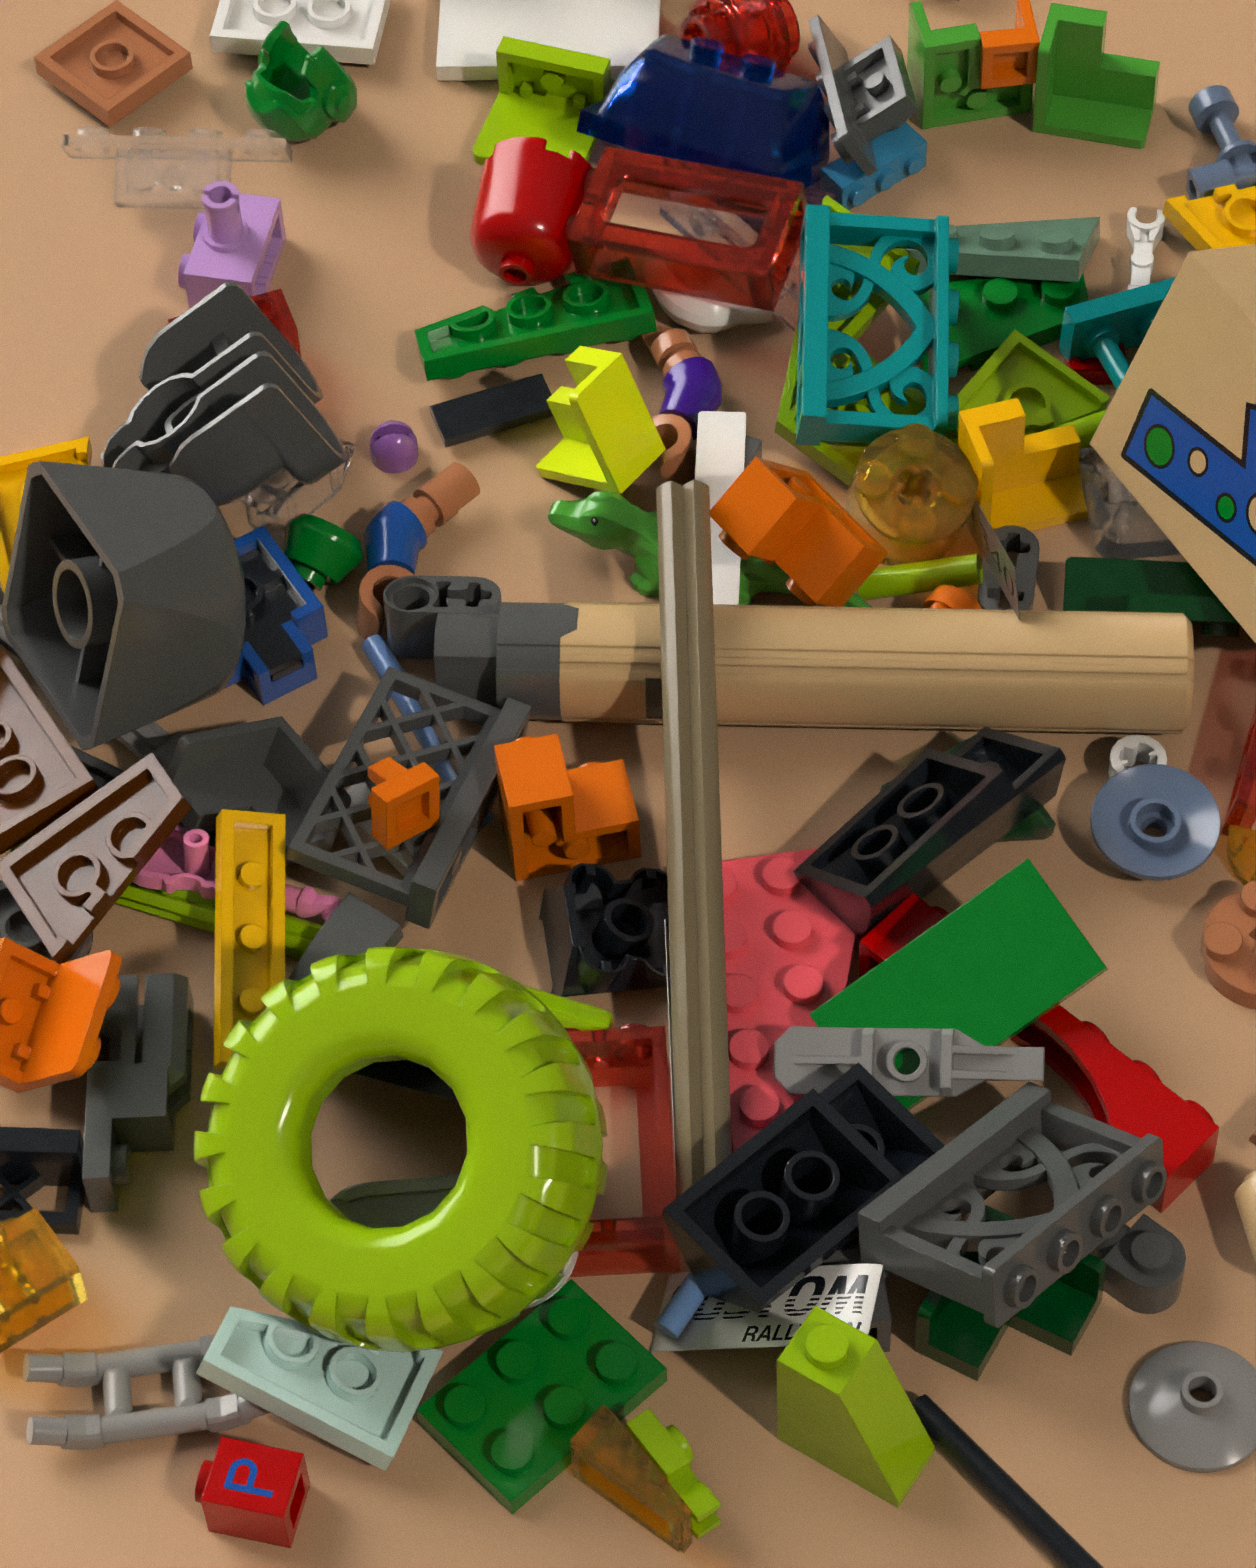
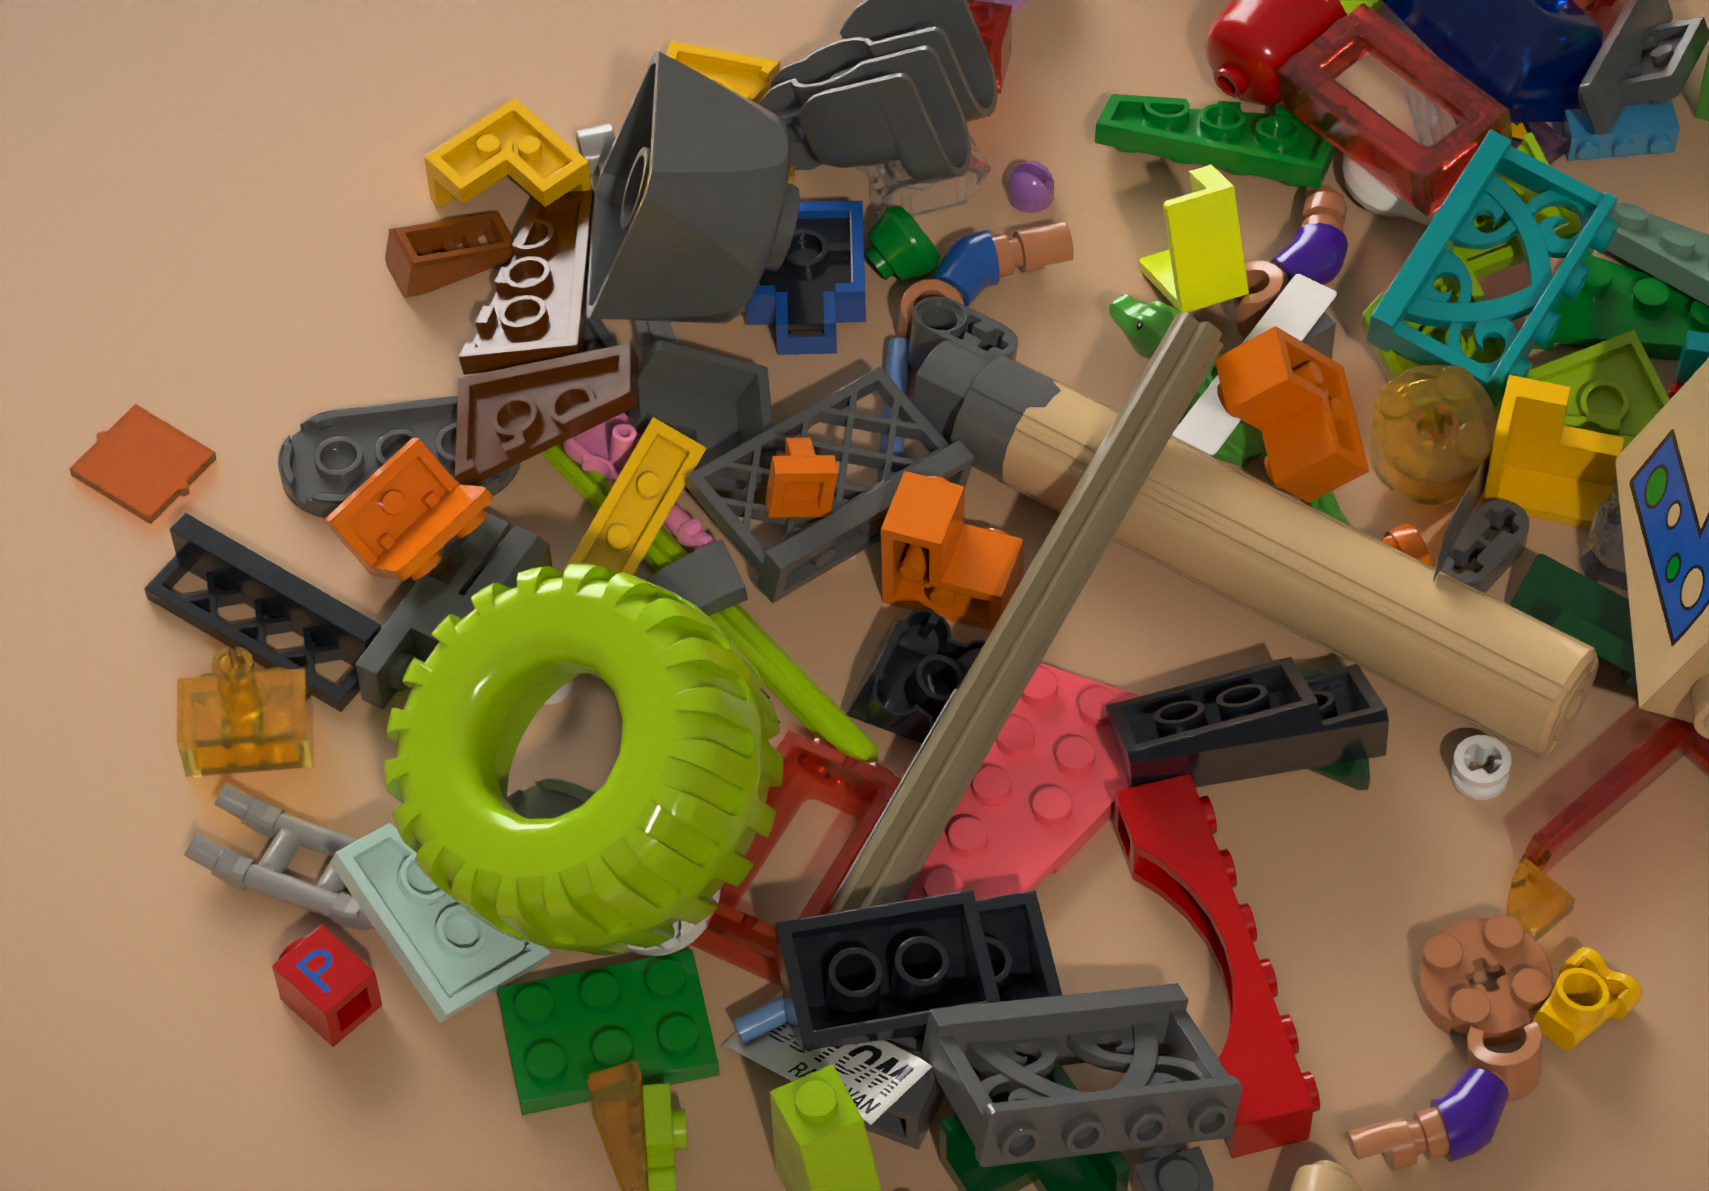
camera: 30 degrees right, 0 degrees up
(492, 410) = (1128, 192): black piece -> none
(922, 577) = (1395, 507): lime piece -> none
(947, 1067) = (1119, 927): light grey piece -> none
(975, 971) = (1167, 874): green tile -> none
(1158, 799) = (1460, 797): sand blue dish -> none

